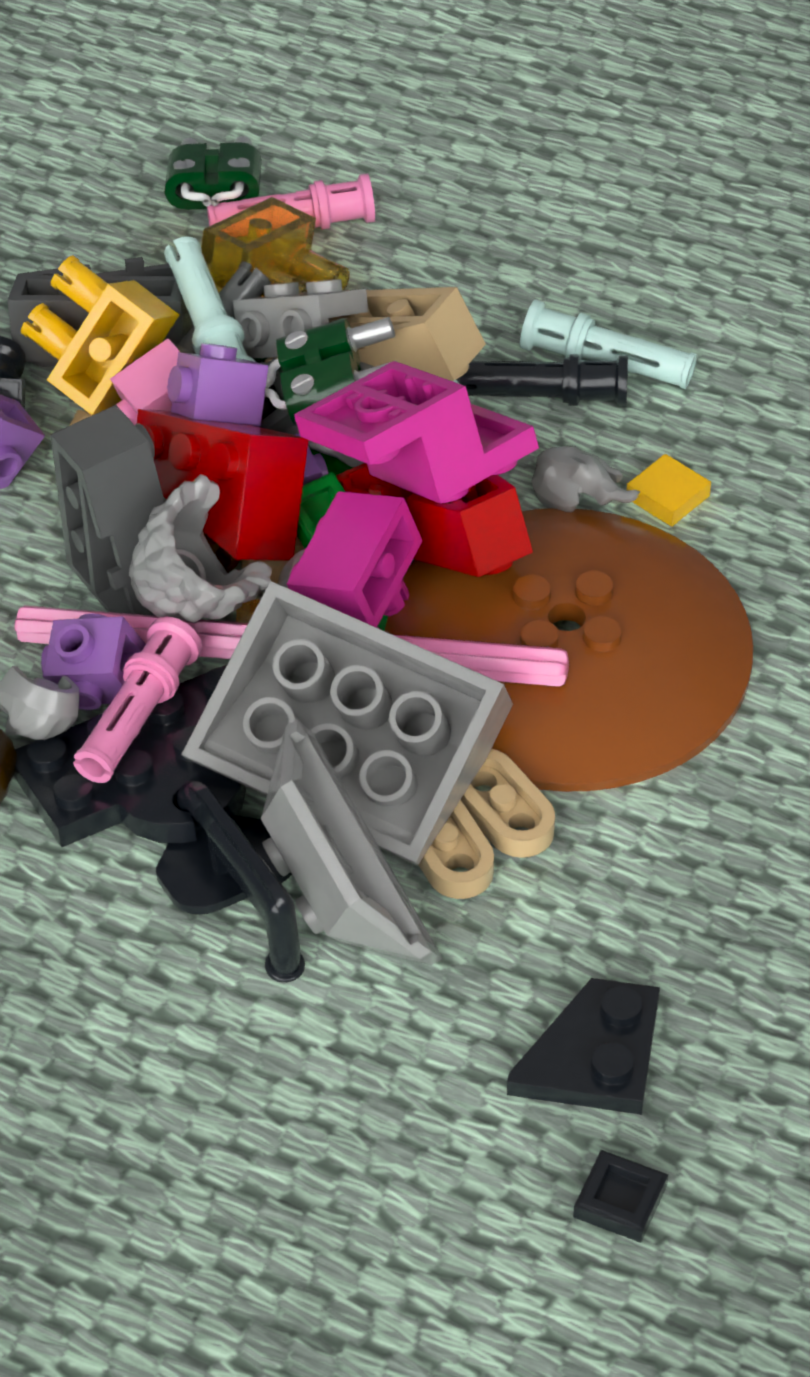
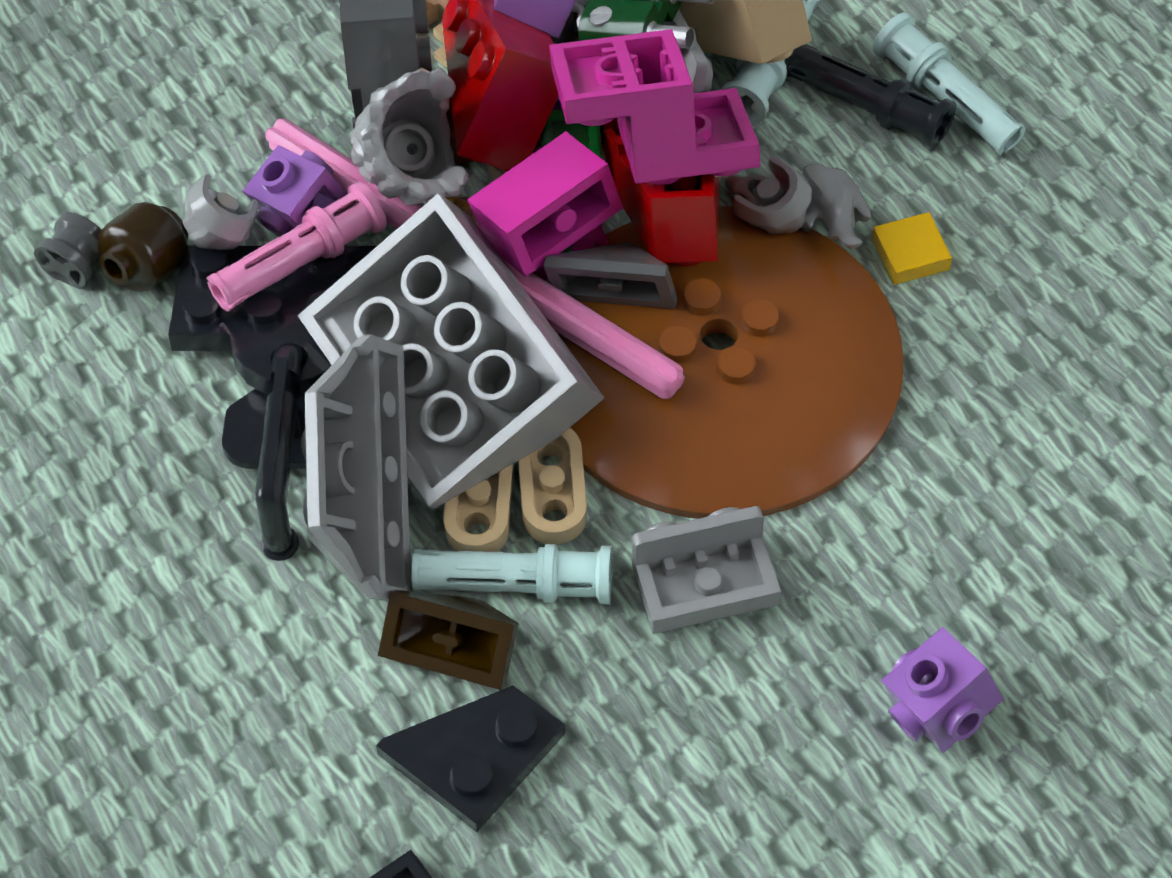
camera: 30 degrees right, 10 degrees up
(451, 603) = (613, 276): none -> dark grey slope
(509, 964) = (449, 636): none -> dark brown slope
(544, 486) = (772, 202): none -> light grey piece
(552, 876) = (546, 573): none -> light aqua pin
(688, 810) = (704, 569): none -> light grey bracket

